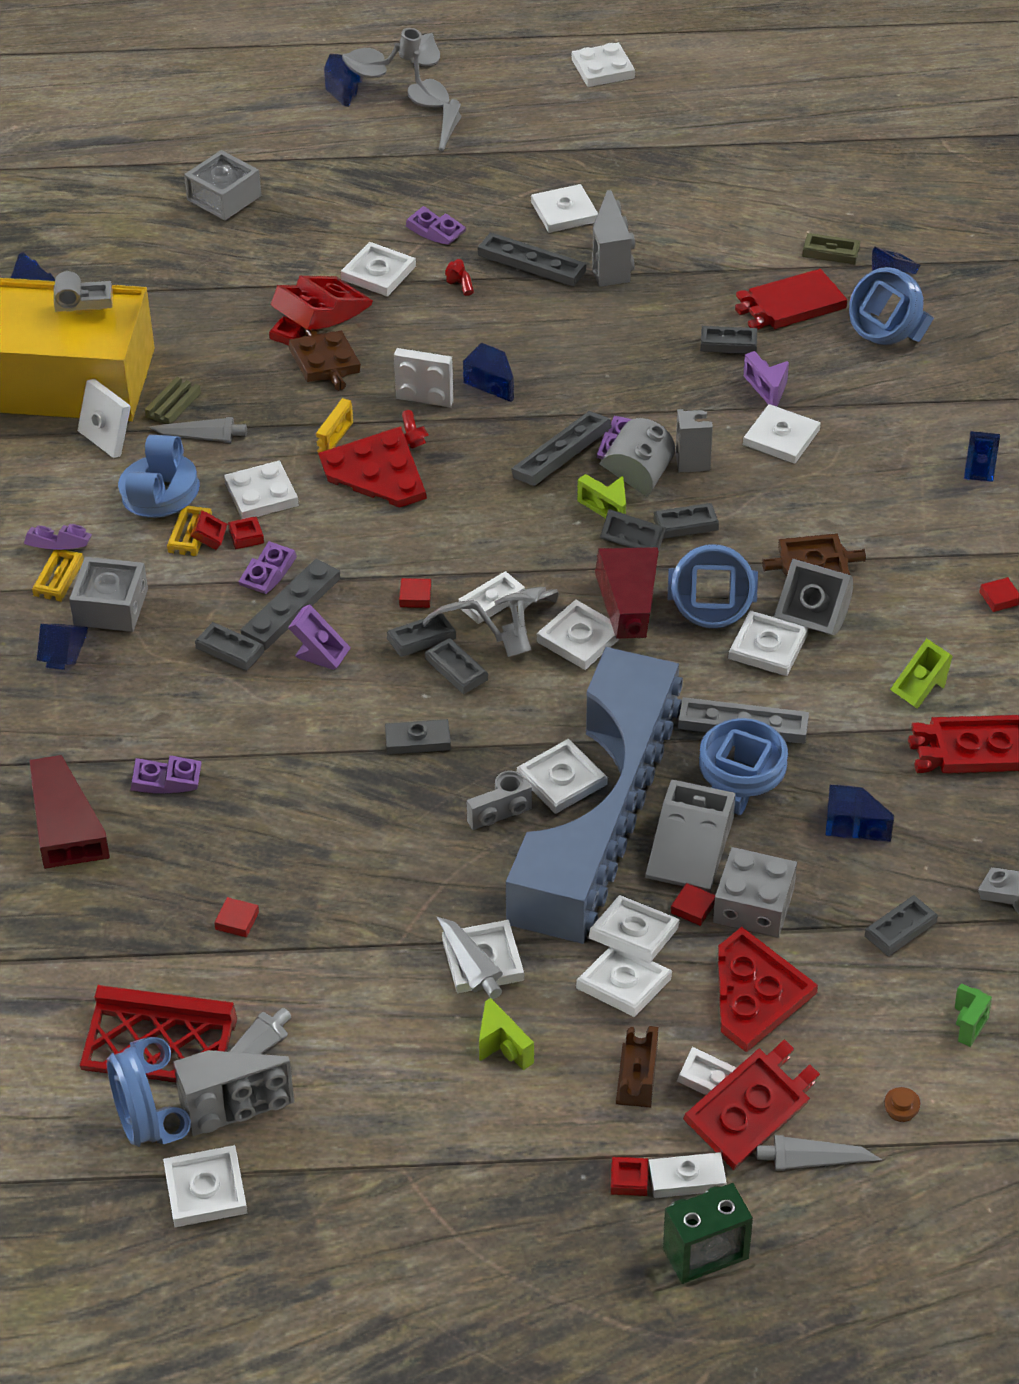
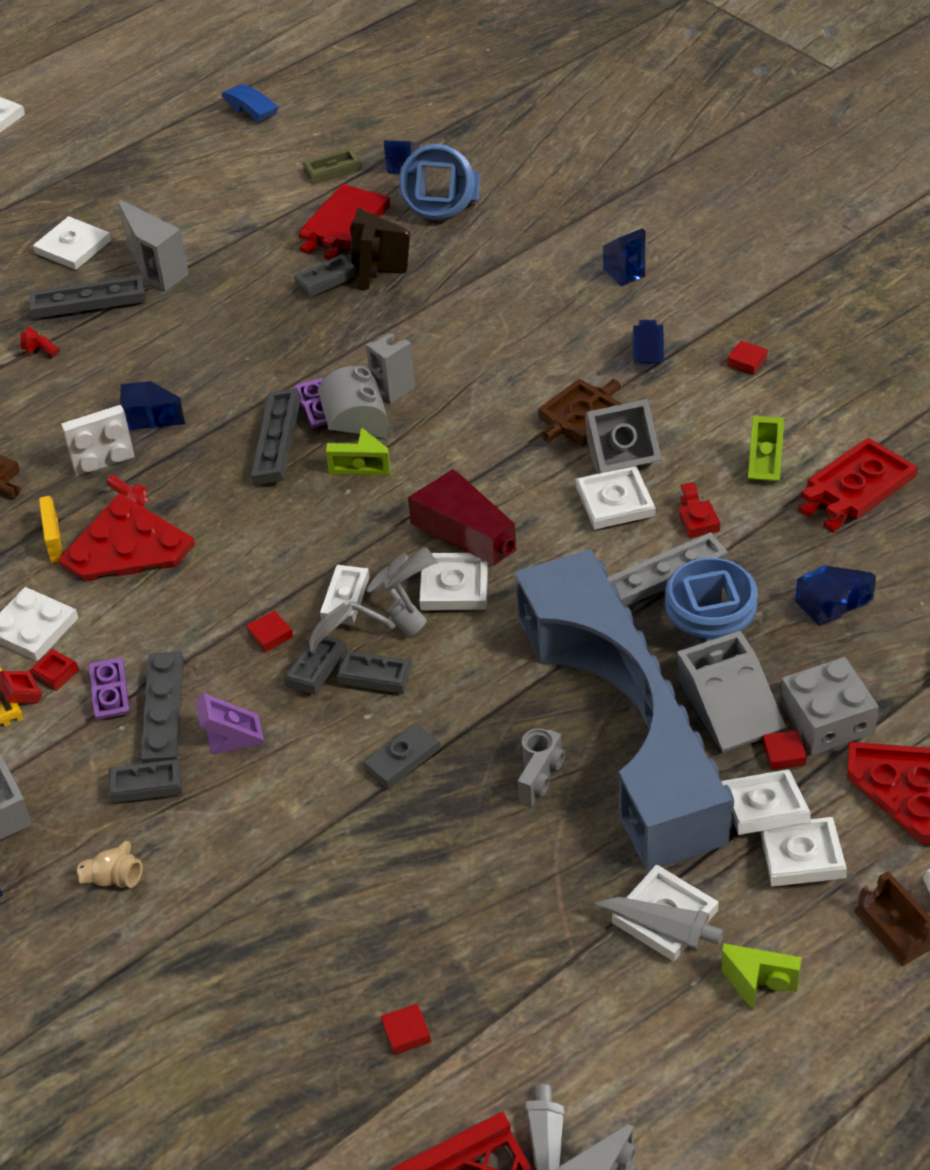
camera: 35 degrees left, 0 degrees up
(64, 818) = (142, 1044): dark red slope -> none
(152, 691) = (111, 868): none -> tan animal
(158, 777) = (209, 937): medium lavender slope -> none
(562, 776) = (566, 708): white plate -> none
(631, 531) = (410, 470): dark grey plate -> none
(687, 520) = (443, 437): dark grey plate -> none
(742, 586) = (555, 463): medium blue piece -> none
(764, 379) = (389, 291): medium lavender slope -> none
(781, 433) = (445, 327): white plate -> none
(784, 334) = (377, 246): none -> dark brown piece
(817, 156) = (250, 100): none -> blue slope
(820, 696) = (697, 516): none -> red plate
(924, 535) = (648, 342): none -> clear blue slope

